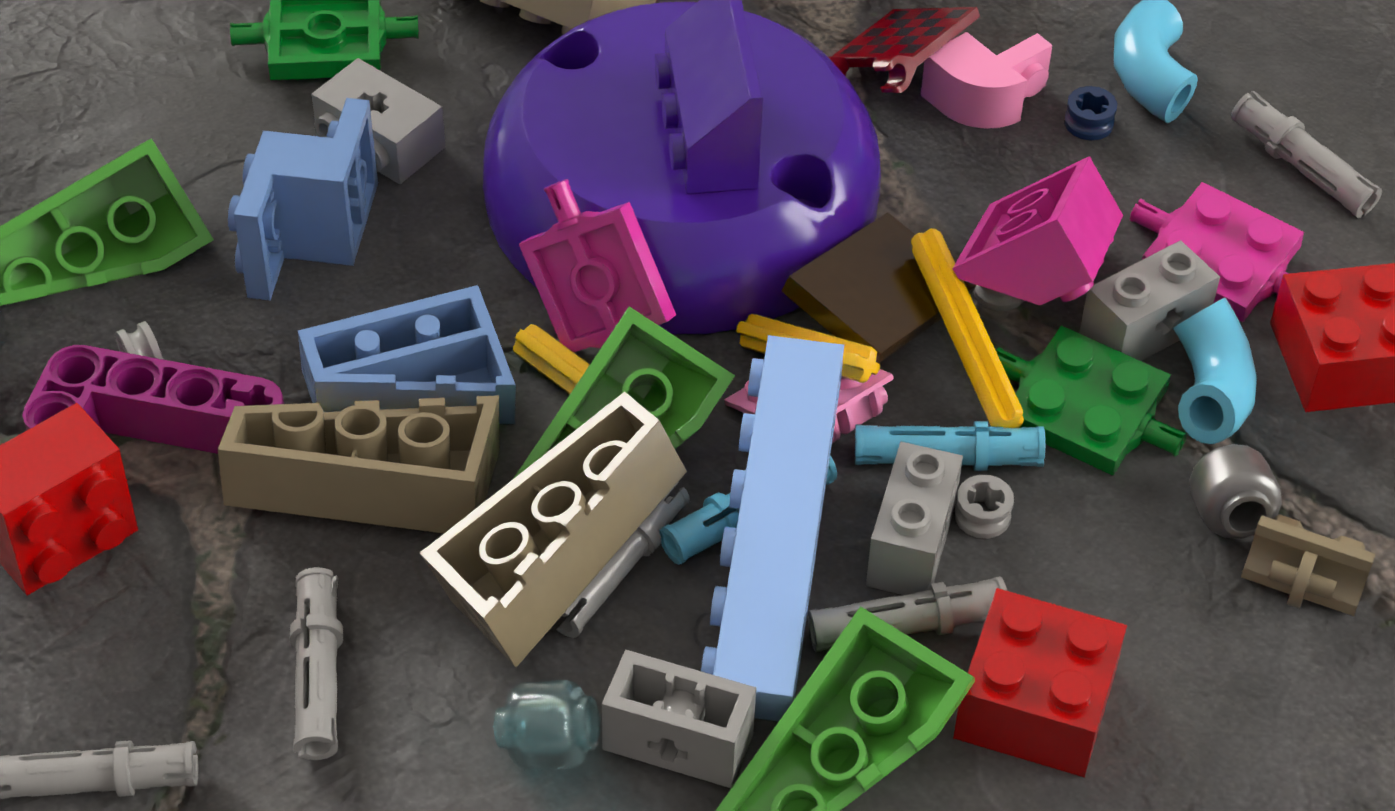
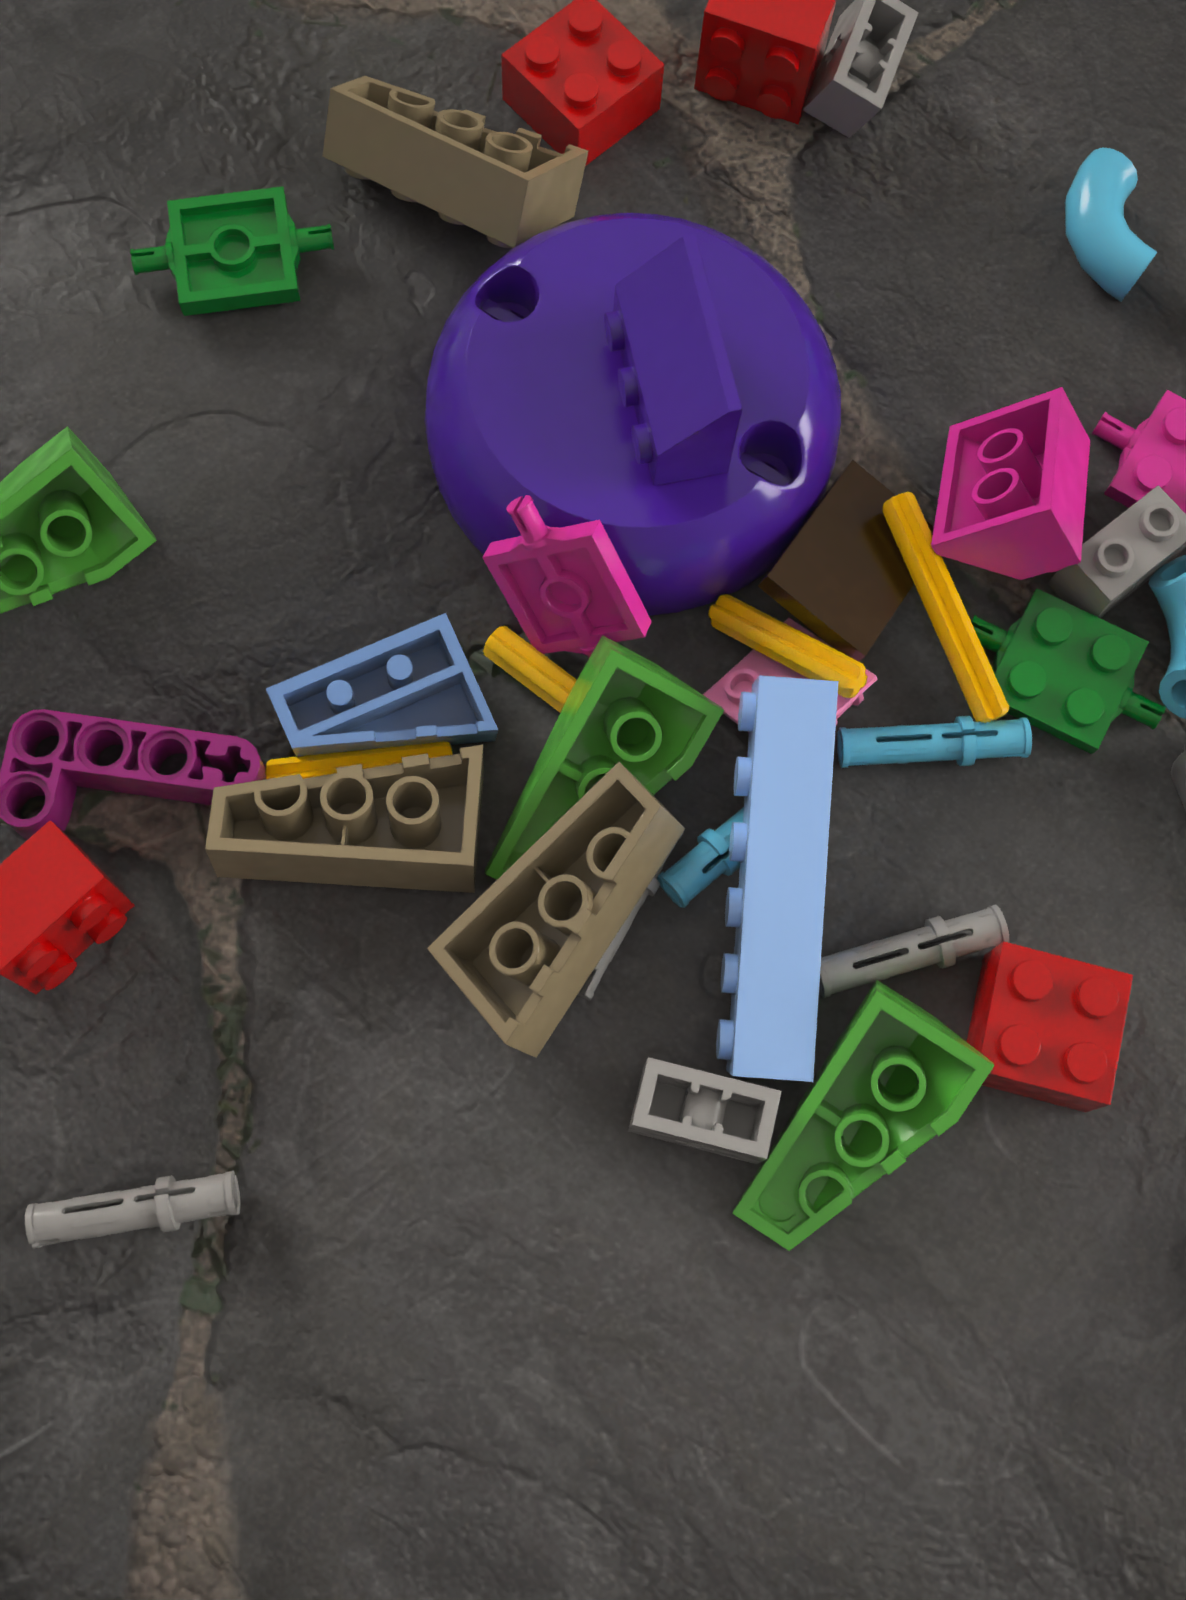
camera: 10 degrees left, 25 degrees up
(140, 342) = (101, 694): light grey bush -> none
(304, 198) = (245, 494): medium blue bracket -> none
(316, 638) = (338, 1069): light grey pin -> none
(404, 122) = (306, 371): light grey brick -> none
(547, 725) = (574, 1120): clear light blue head -> none
(903, 42) = (847, 224): dark red flag -> none
(913, 519) = (910, 845): light grey brick -> none
(982, 87) = (928, 274): bright pink brick -> none
(996, 496) = (979, 794): light grey bush -> none
(1090, 113) = (1047, 282): dark blue bush -> none

